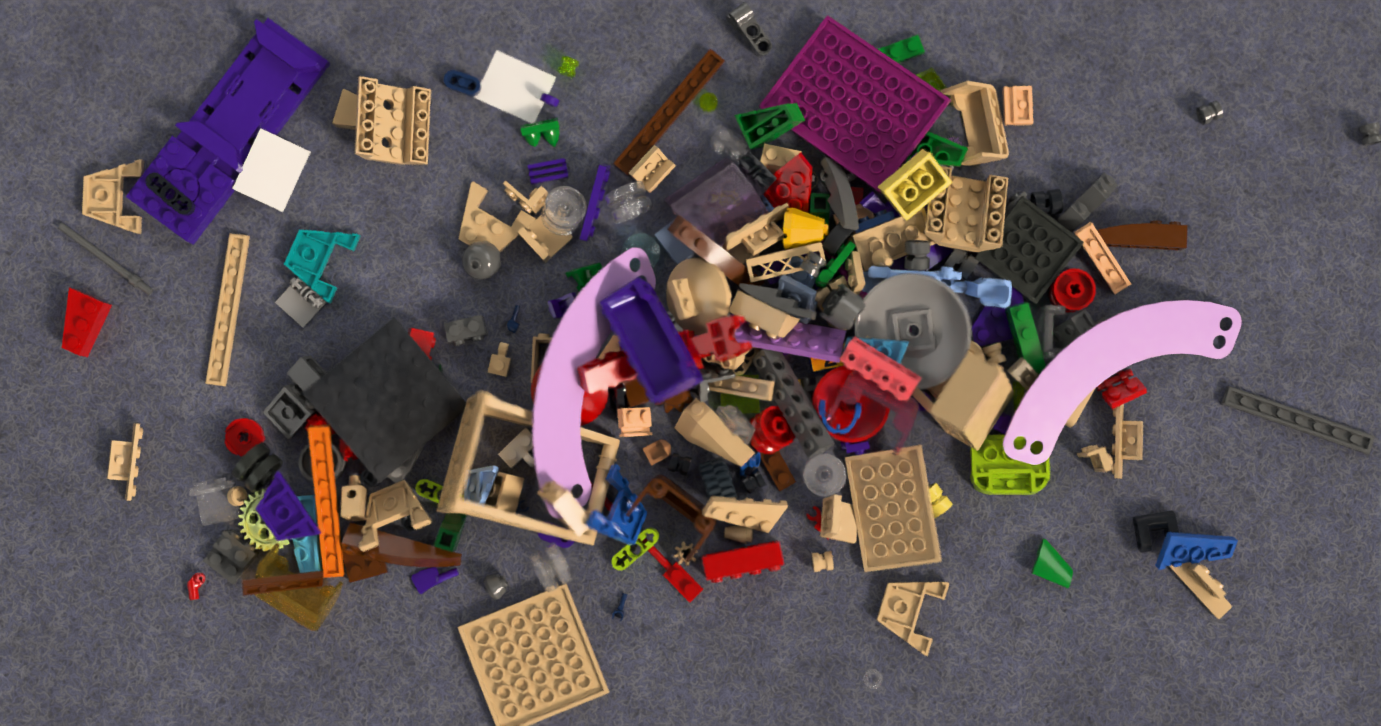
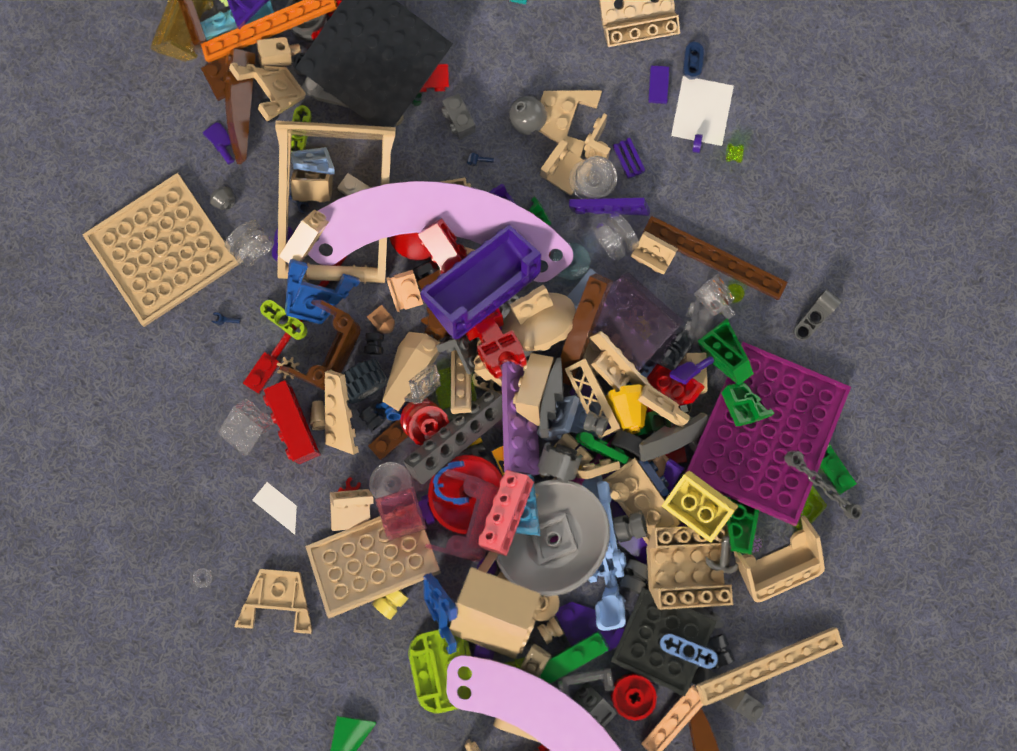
camera: 80 degrees right, 5 degrees down
(450, 531) = (262, 145): dark green slope -> none
(478, 123) = (658, 84): none -> dark purple tile
(500, 363) = (435, 155): tan plate -> none
(548, 127) = (668, 150): green tile -> none
(710, 120) = (716, 297): none -> clear torso
(734, 608) = (245, 426): none -> clear bracket
(779, 164) = (688, 370): none -> dark purple piece
(809, 196) = (663, 405): none -> tan hinge
(818, 592) = (277, 506): none -> white sticker
(822, 561) = (307, 502): tan wheel -> none
(824, 119) = (744, 405): none -> green slope
(857, 470) = (400, 514): none -> clear pink slope
(892, 83) = (796, 459): none -> dark grey piece
(955, 451) = (441, 609): none -> blue wing
(956, 171) = (724, 558): none -> dark grey piece
(1018, 105) = (810, 601): light nougat plate -> none
(1048, 213) = (672, 650): none -> medium blue beam
(1071, 158) = (769, 666): none -> tan plate

